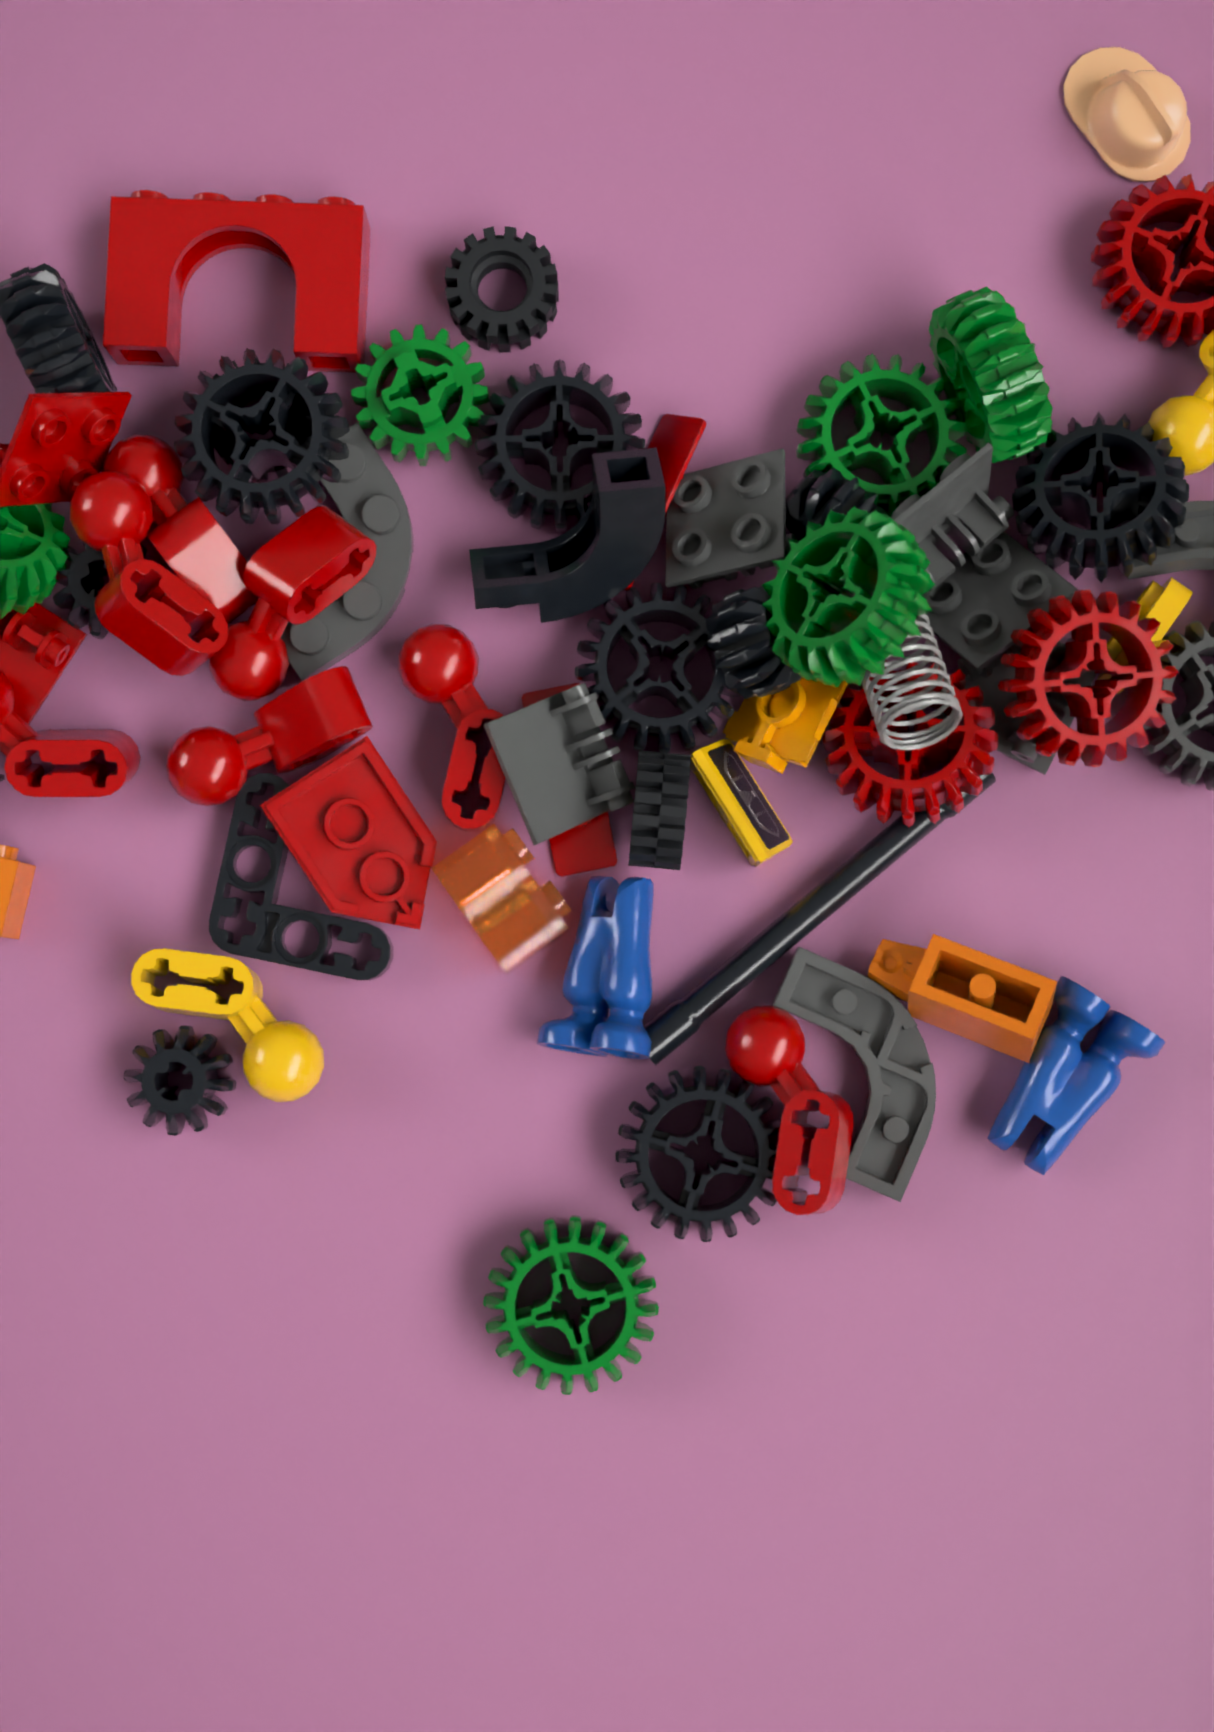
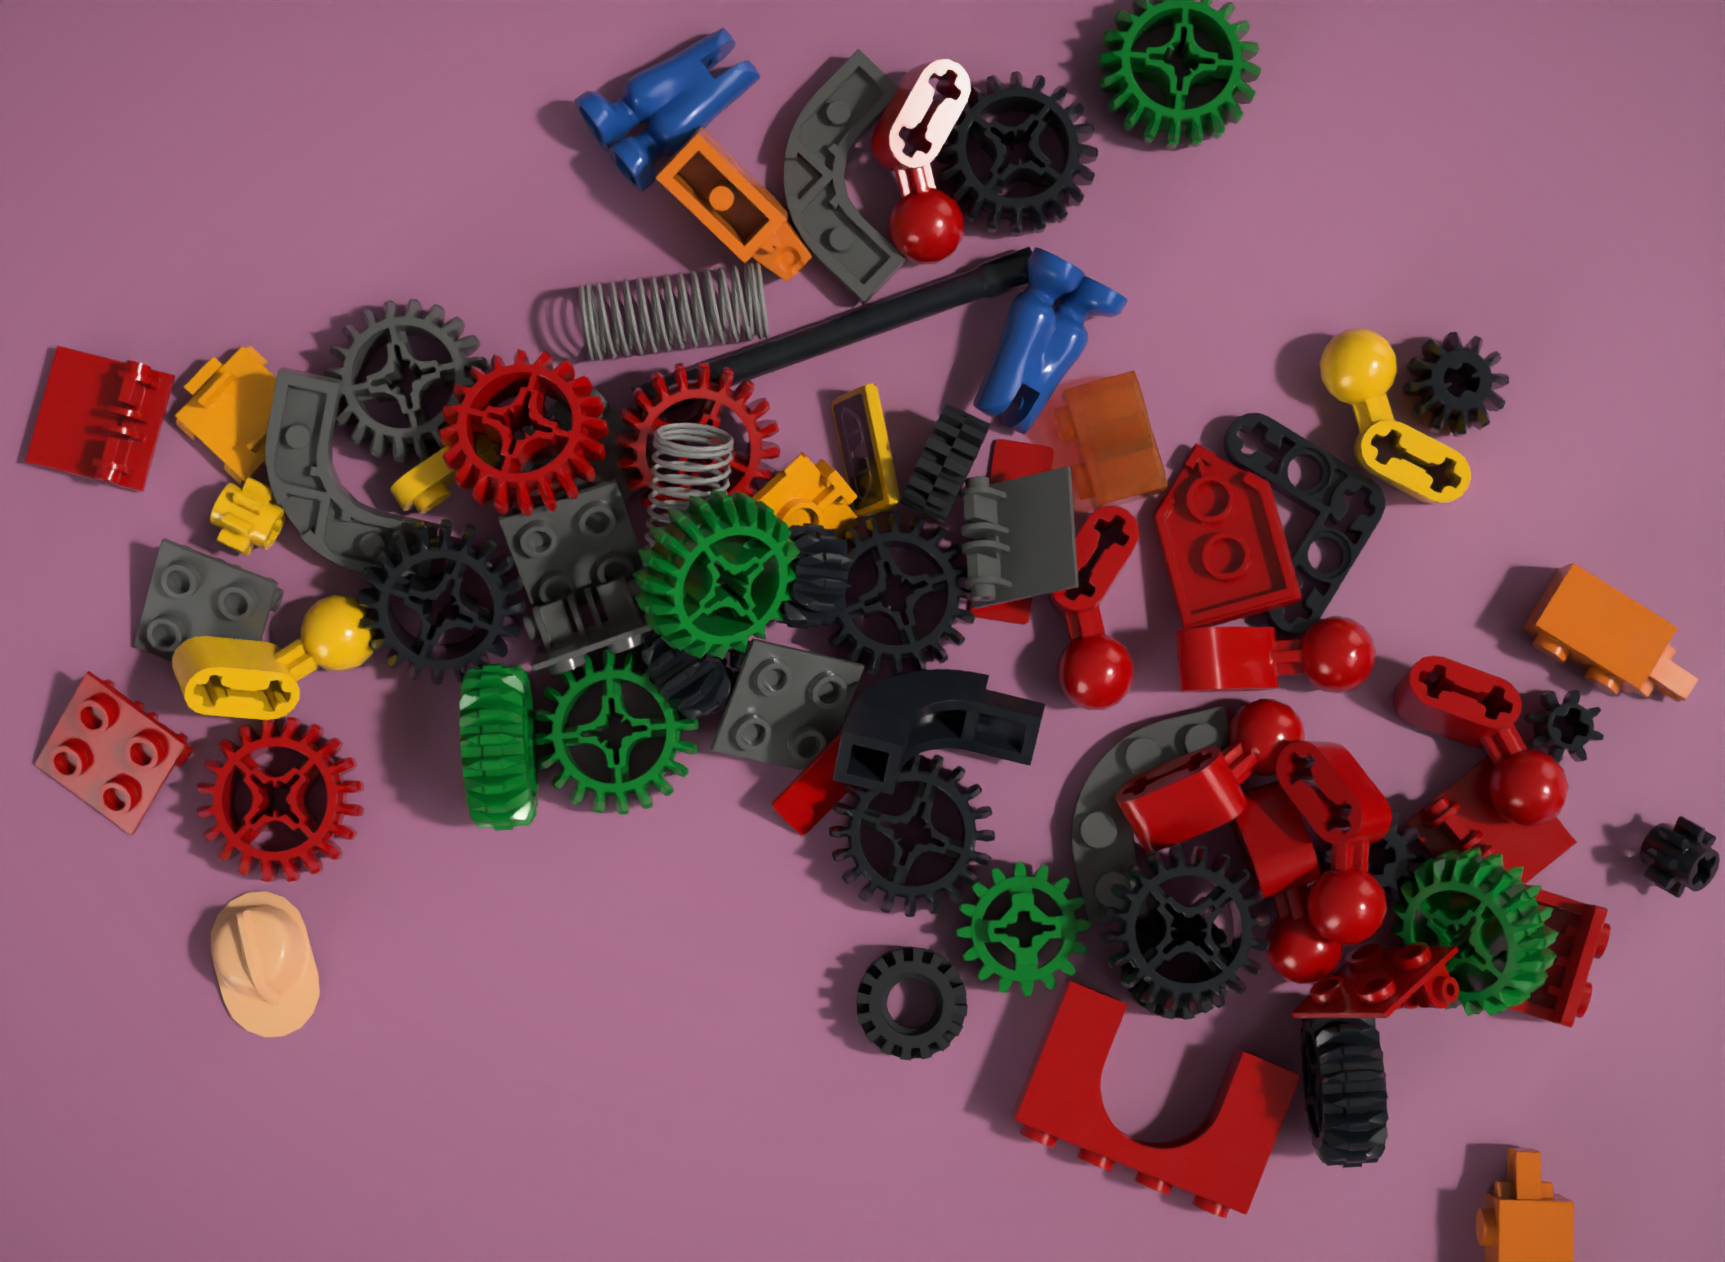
camera: 165 degrees left, 0 degrees up
(907, 911) = (598, 335): none -> light grey piece

